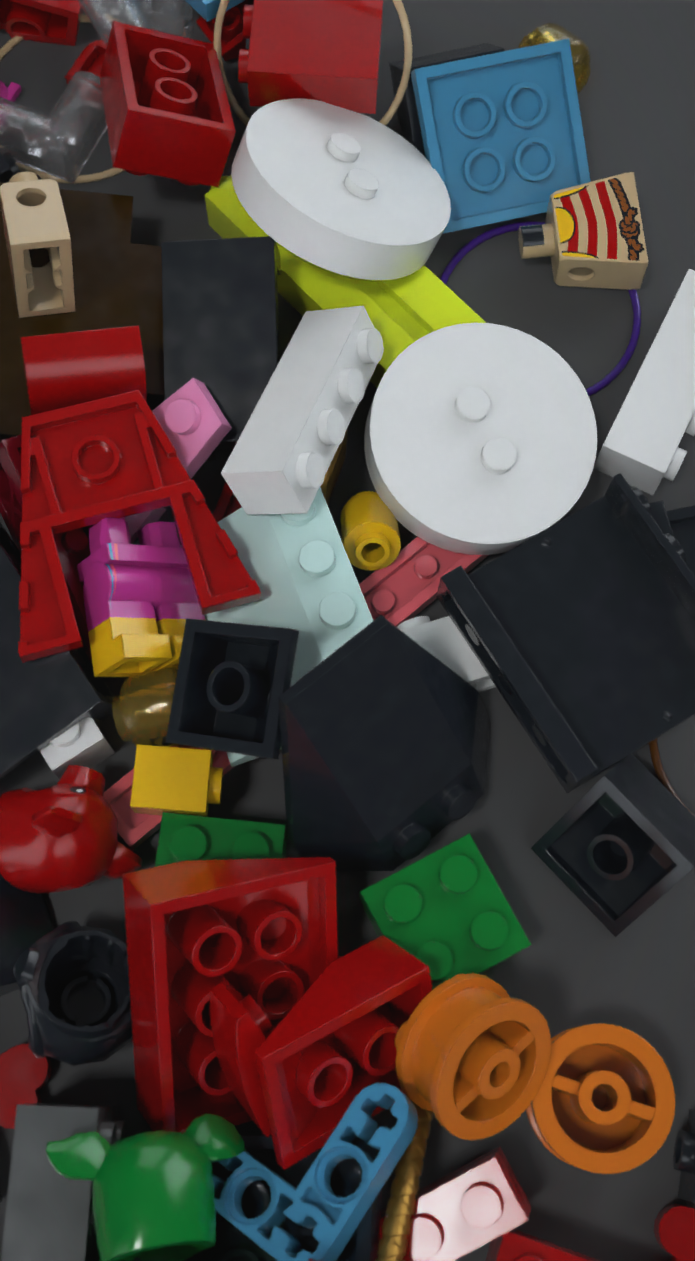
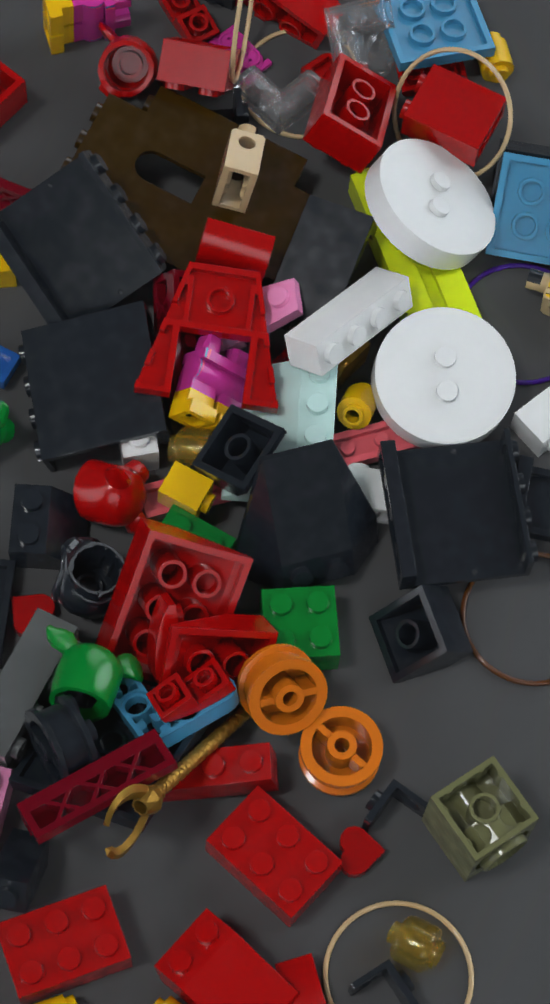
camera: 20 degrees right, 5 degrees down
(337, 1149) = (186, 696): none -> red slope

